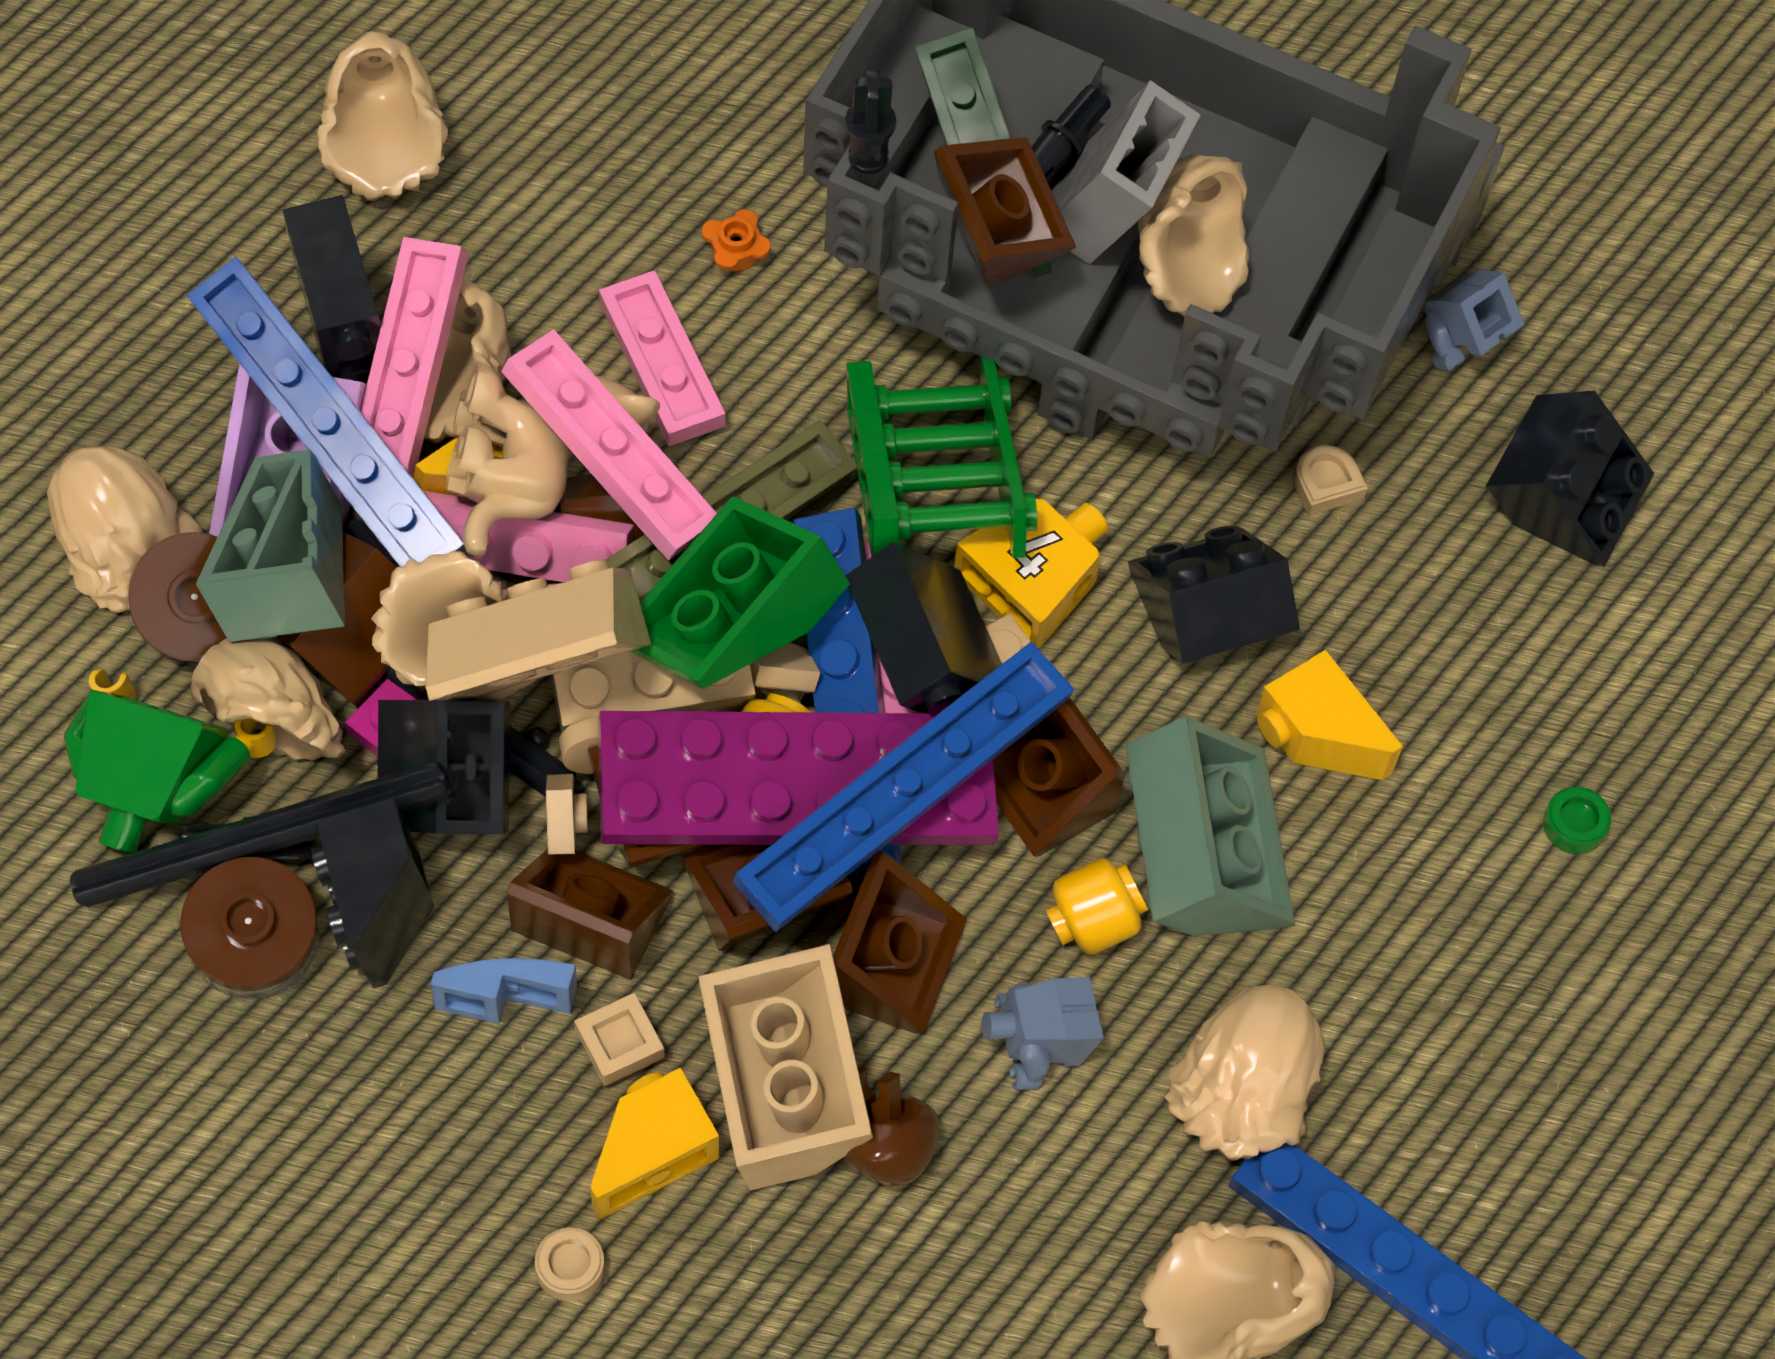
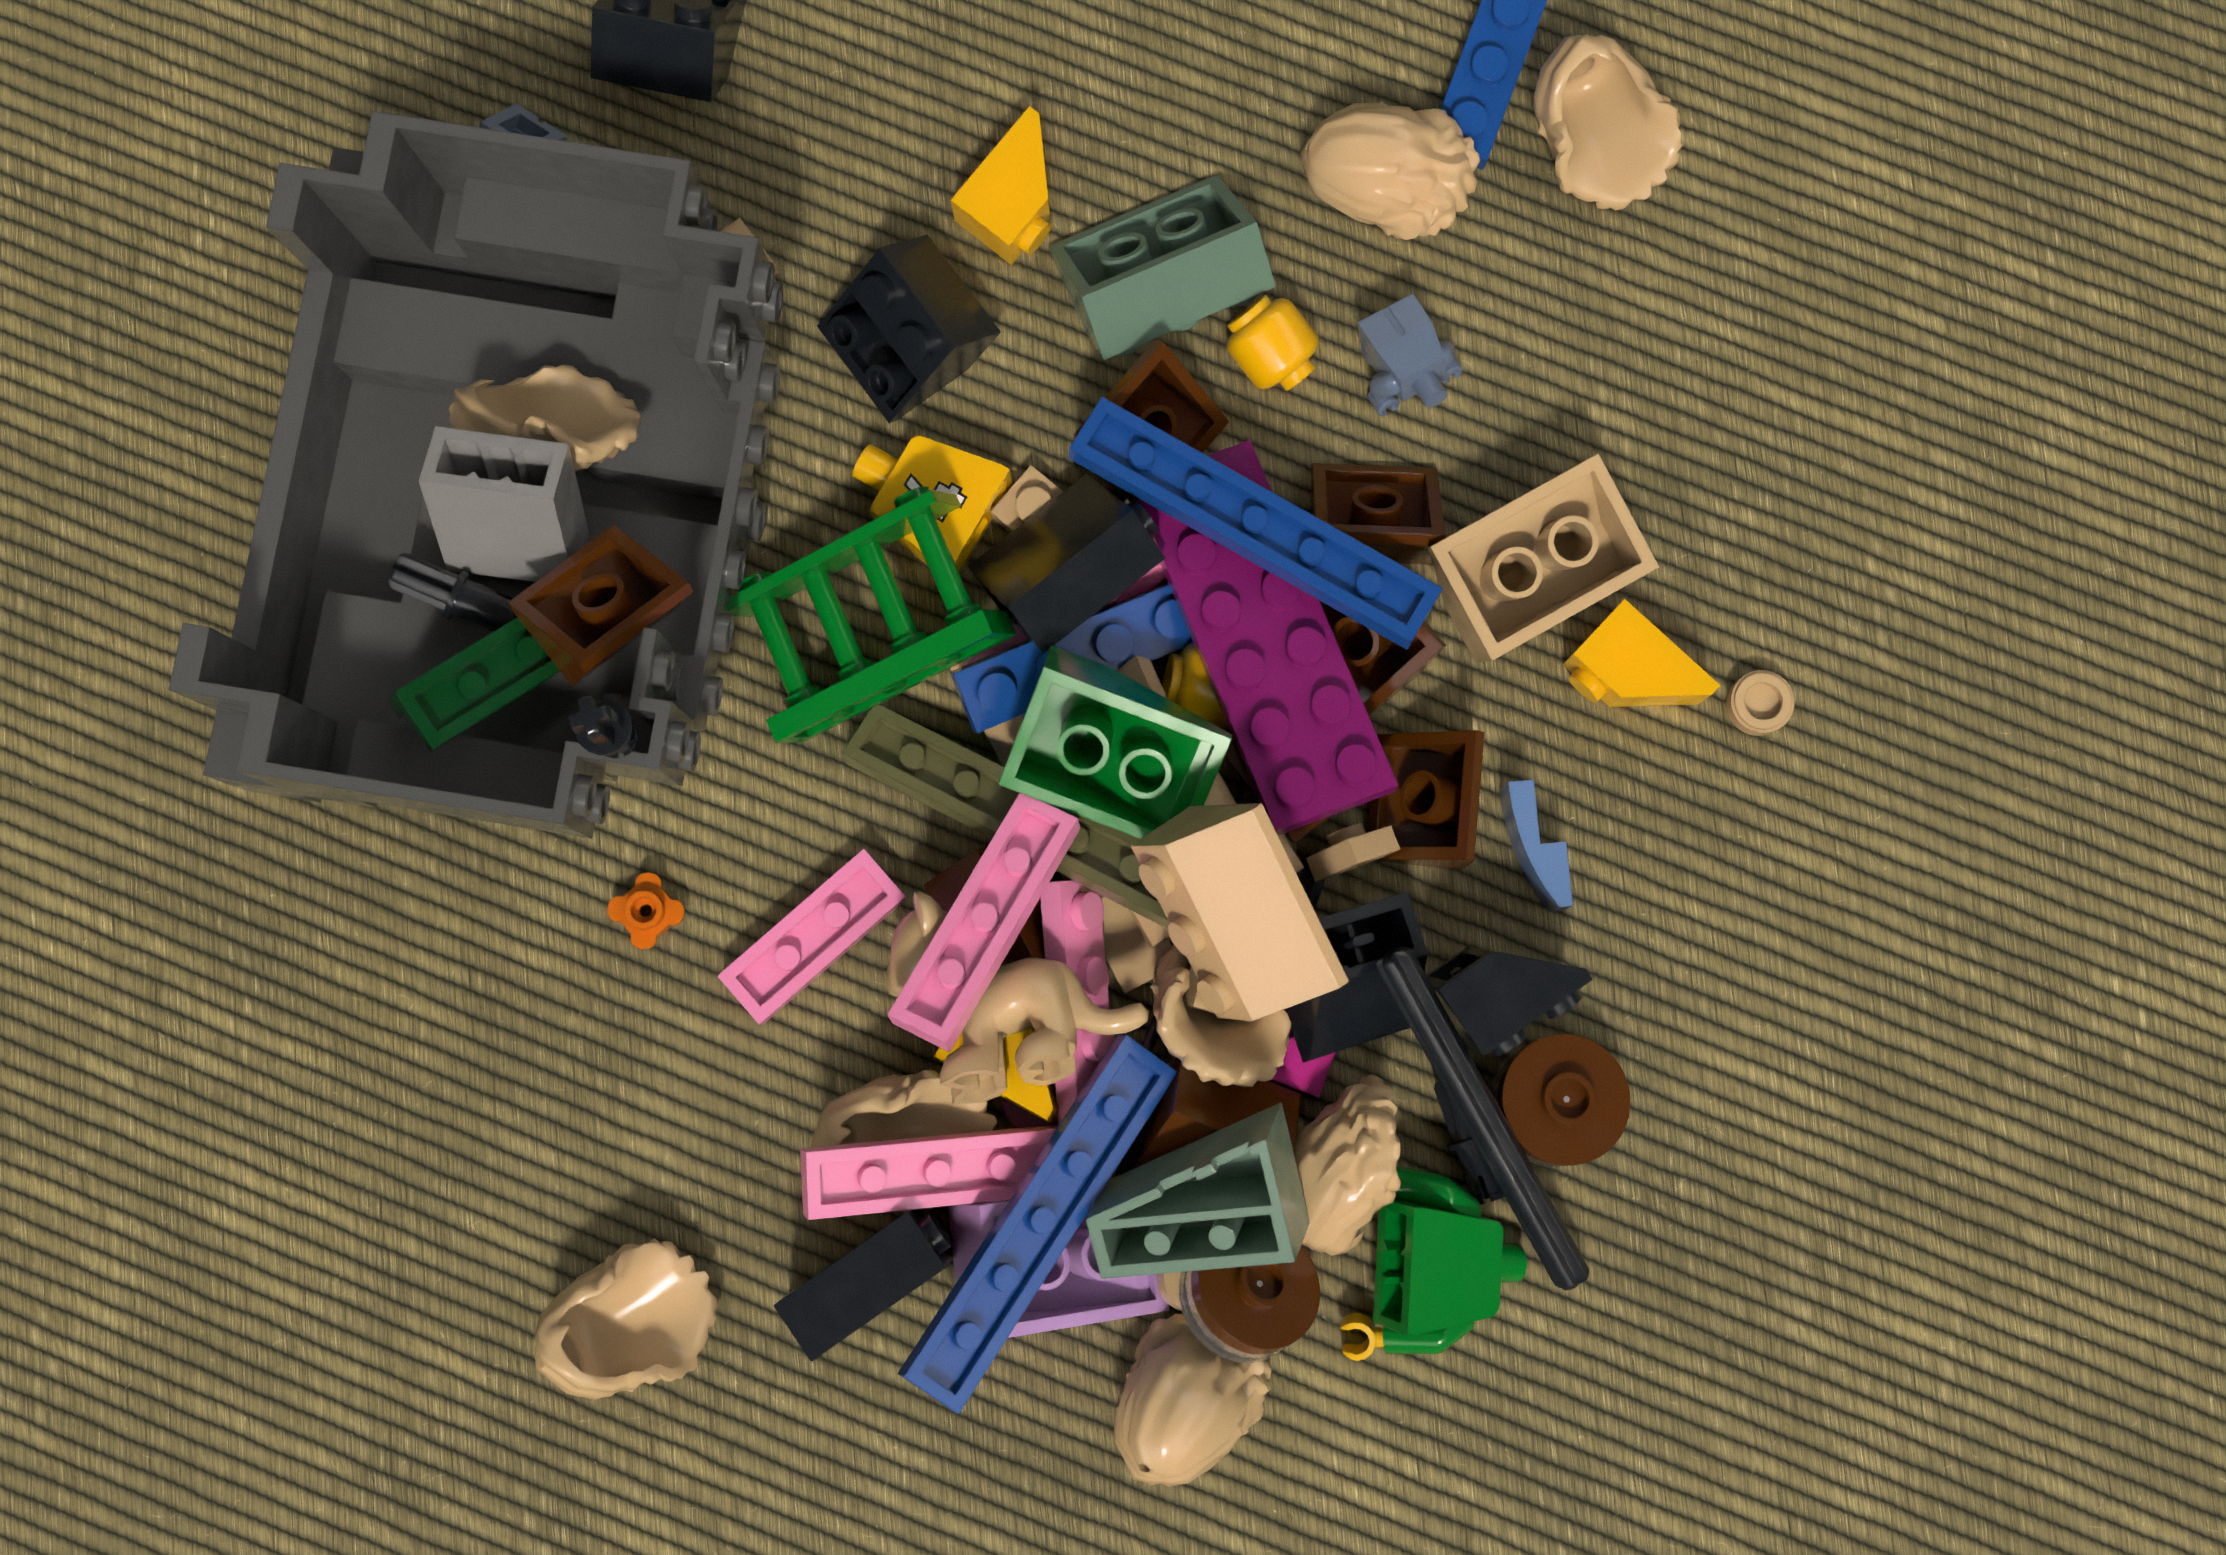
camera: 100 degrees left, 20 degrees up
(619, 1039) = (1546, 728): tan plate -> none
(902, 1132) = (1554, 445): reddish brown piece -> none

